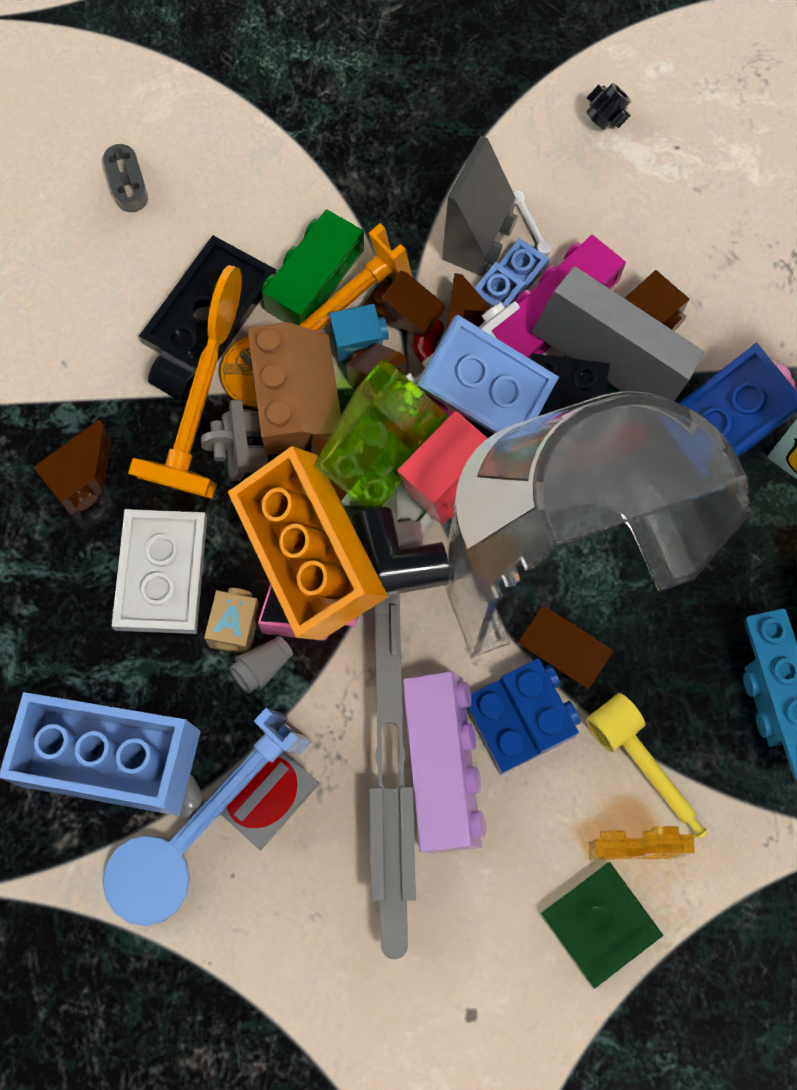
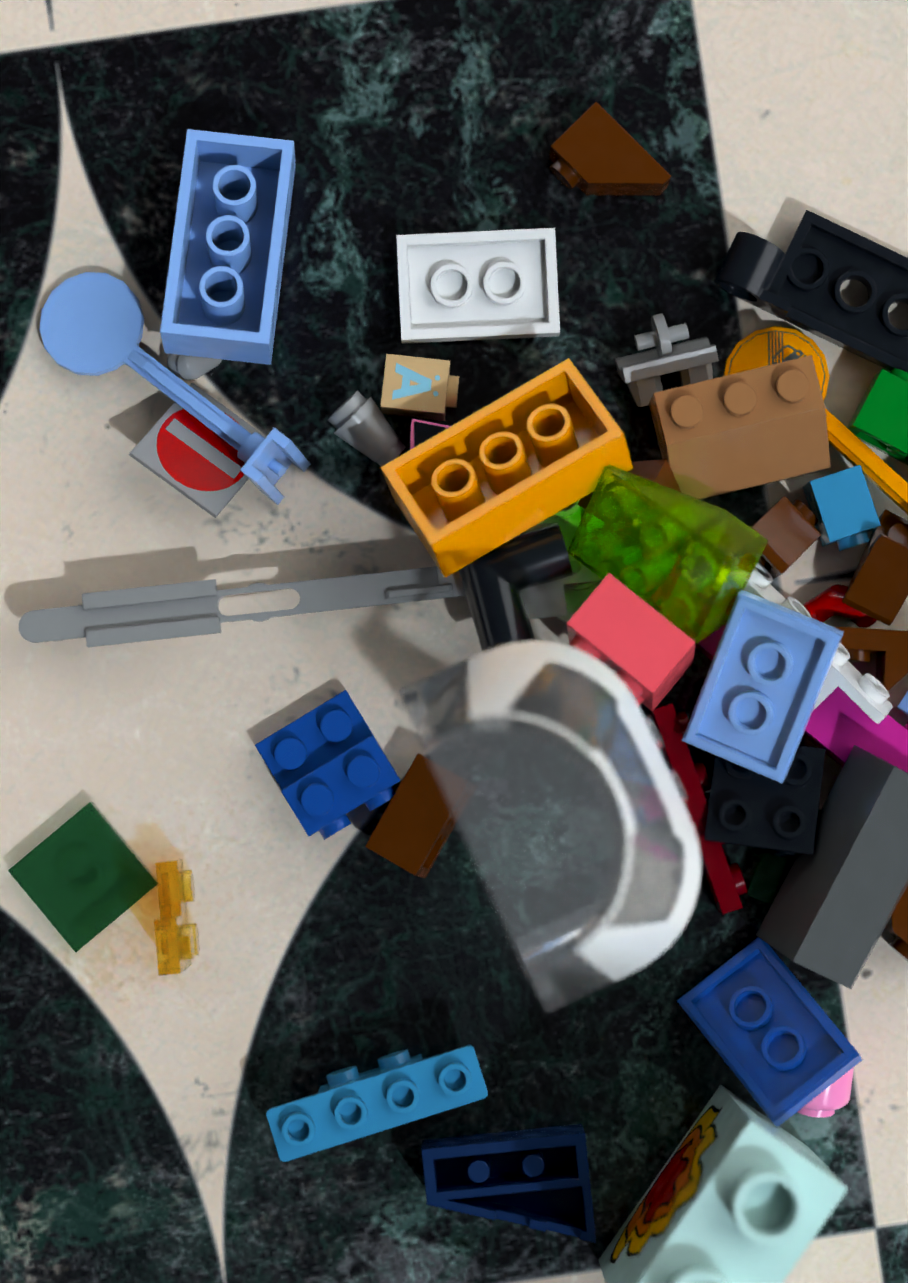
camera: 85 degrees right, 15 degrees up
(175, 470) = (611, 286): light orange piece -> none
(443, 763) = (257, 669): lavender brick -> none
(616, 726) = (323, 888): light yellow piece -> none

